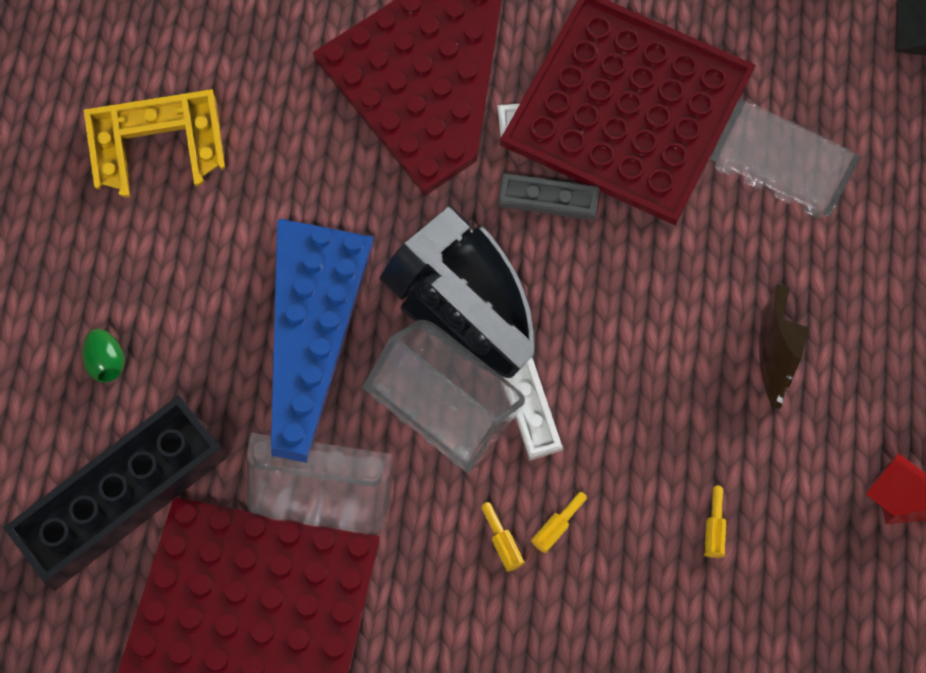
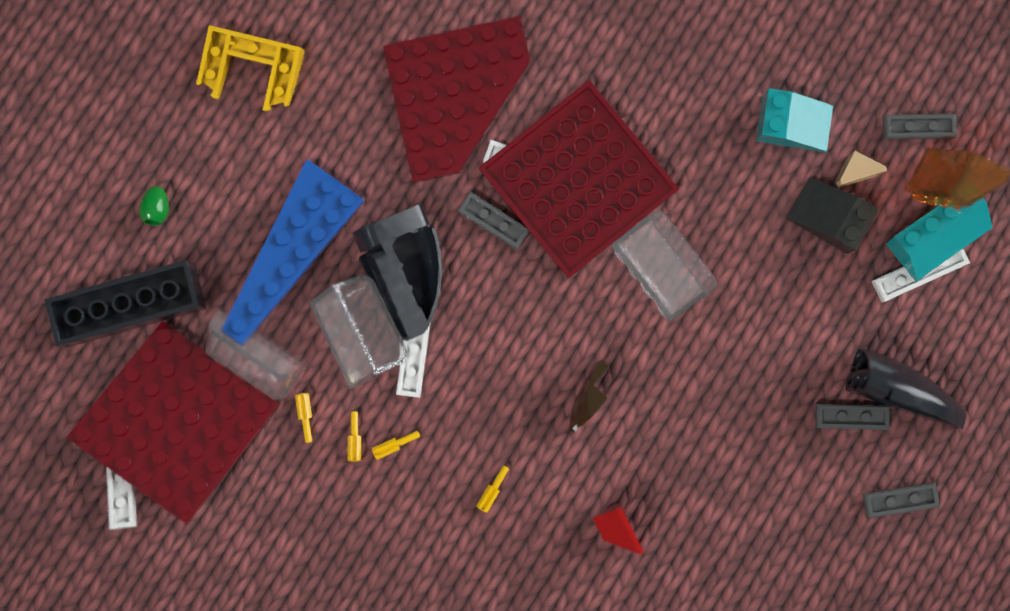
camera: 25 degrees right, 15 degrees up
(420, 536) = (304, 413): none -> yellow axle

